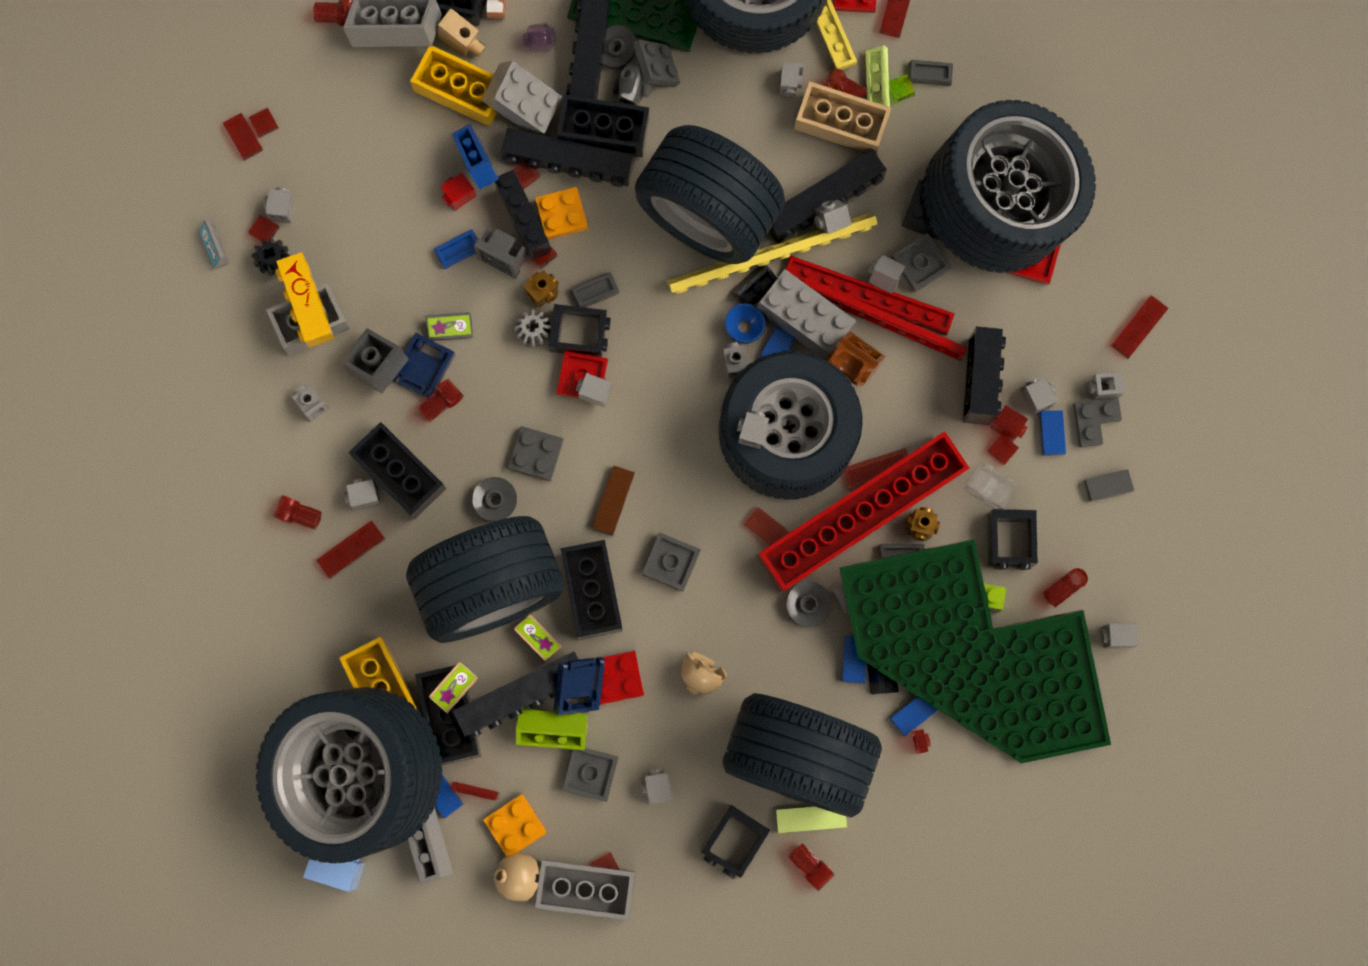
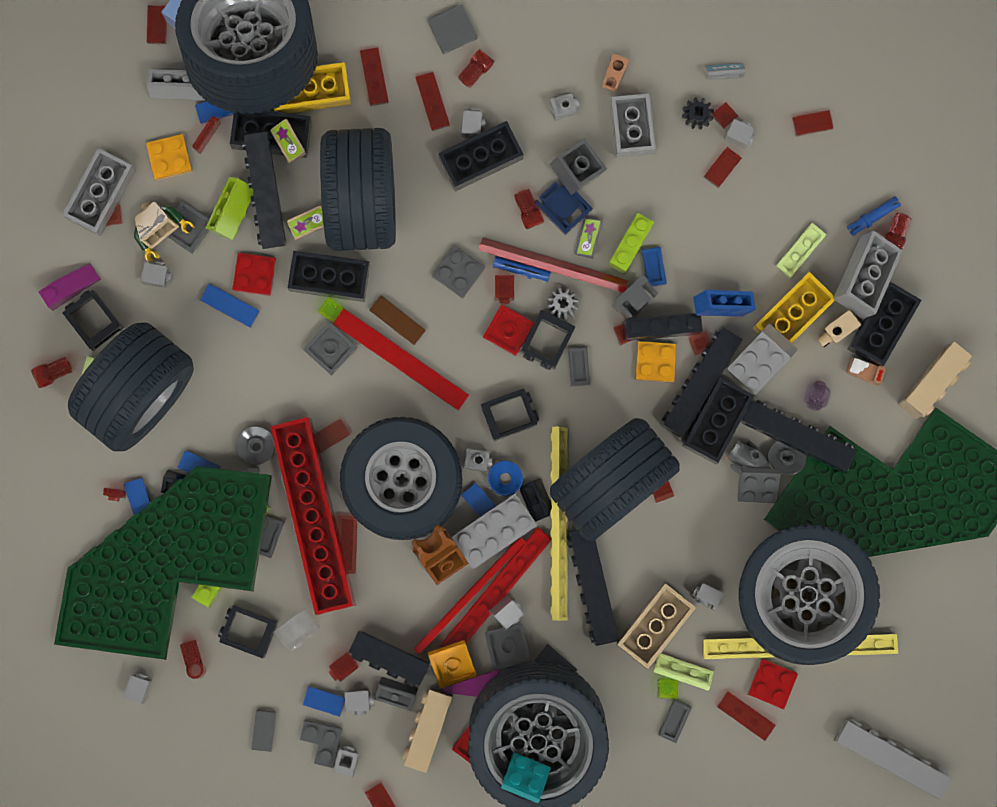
camera: 110 degrees right, 5 degrees up
(253, 359) = (615, 72): none -> nougat leg
(259, 556) = (452, 29): none -> dark grey tile
(263, 122) = (819, 143): clear red tile -> none
(304, 299) = (643, 124): yellow brick -> none
(323, 213) = (722, 167): none -> clear red tile
(332, 47) = (867, 220): none -> blue pin
(343, 625) = (374, 76): none -> clear red tile
(362, 900) = (156, 25): none -> clear red tile
(388, 104) = (801, 250): none -> yellowish green tile
(441, 278) = (631, 243): none -> lime brick
(457, 191) = (702, 280): red brick -> none
(492, 488) = (429, 216): dark grey dish -> none
(493, 353) = (553, 265): none -> red tile
(507, 359) = (499, 263): none -> blue pin
(516, 877) = (127, 142): tan cylinder -> none
(538, 396) = (504, 288): none -> clear red brick
(542, 288) = (593, 315): pearl gold brick -> none
(576, 680) = (260, 239): dark blue container -> none
(594, 390) = (490, 333): light grey brick -> none
(601, 808) = (155, 225): none -> torso
(628, 576) = (330, 309): none -> clear neon green plate
(655, 482) = (401, 359): none -> red tile
(662, 692) = (229, 305): none -> blue tile
(687, 361) = (526, 398): none -> black window
(700, 674) = (231, 339): tan cylinder -> none
(705, 883) = (69, 286): none -> magenta slope
(752, 429) = (399, 438): light grey brick -> none
(832, 216) = (569, 583): light grey brick -> none
(844, 84) = (688, 635): clear red piece -> none
(919, 531) = (293, 564): pearl gold brick -> none
(962, 311) = (452, 664): none -> light orange plate
(975, 282) = (471, 686): none -> magenta slope
(1003, 449) = (325, 654): clear red tile -> none
(1015, 361) = (396, 693): none -> dark grey slope
(1042, 310) = (428, 730): none -> tan brick
(1058, 177) = (525, 777): none -> teal plate

